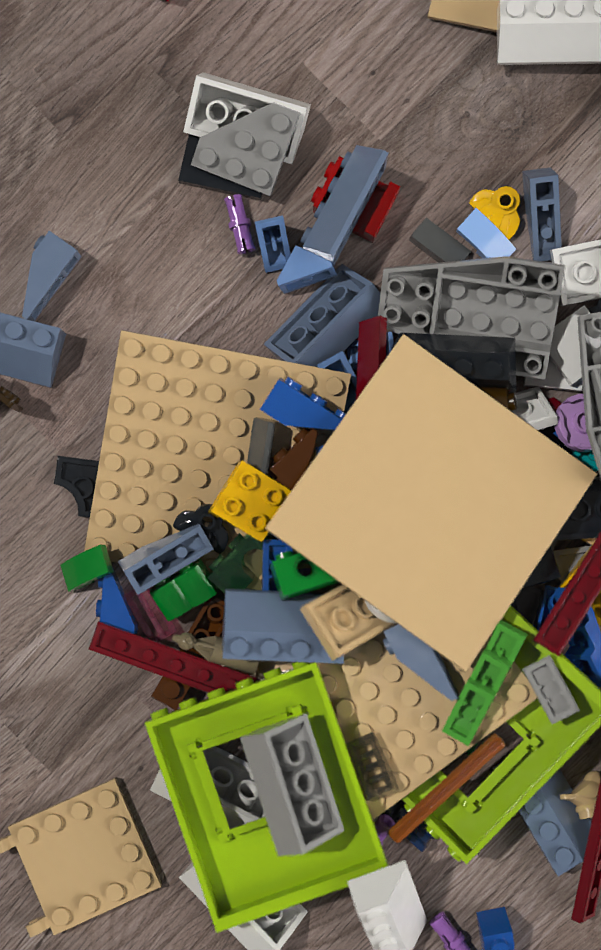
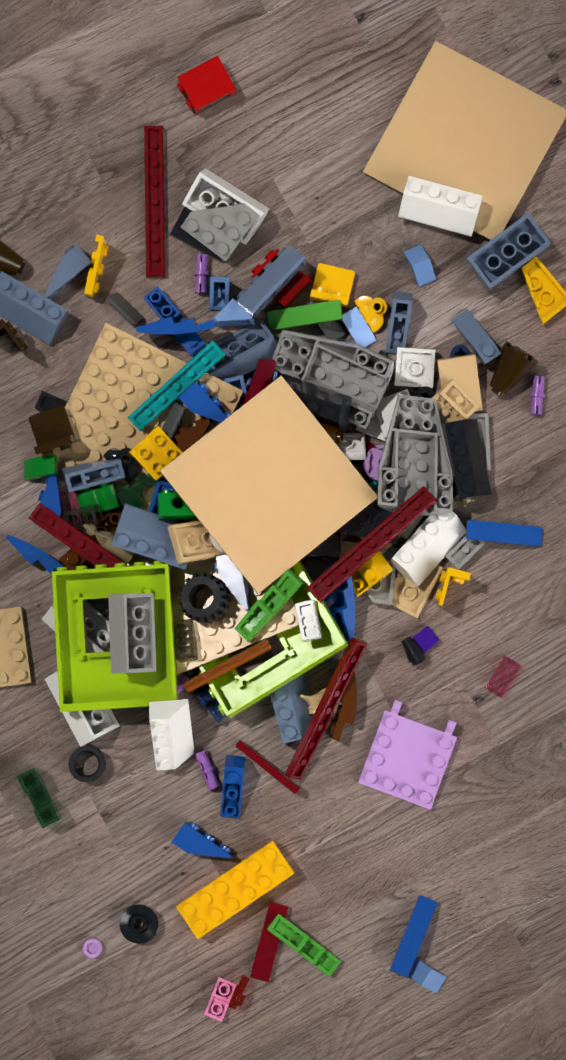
camera: 15 degrees right, 0 degrees up
(83, 239) = (92, 285): none -> yellow wing
(87, 510) = (52, 430): none -> dark brown bracket
(112, 697) = (34, 554): none -> blue slope
(143, 141) = (154, 201): none -> dark red tile
(144, 306) = (125, 309): none -> dark grey slope
(180, 609) = (93, 509): none -> clear smoke slope
(216, 309) = (170, 326): none -> blue slope
(220, 302) = (165, 308): none -> blue slope
(252, 393) = (176, 385): none -> teal tile
(359, 705) = (189, 593): none -> black tyre
(407, 240) = (305, 315): none -> bright green slope
(432, 189) = (332, 284): none -> yellow bracket
(442, 855) = (215, 712): none -> dark blue wheel
(541, 913) = (267, 767): none -> dark red tile
(548, 125) = (420, 265): none -> medium blue slope

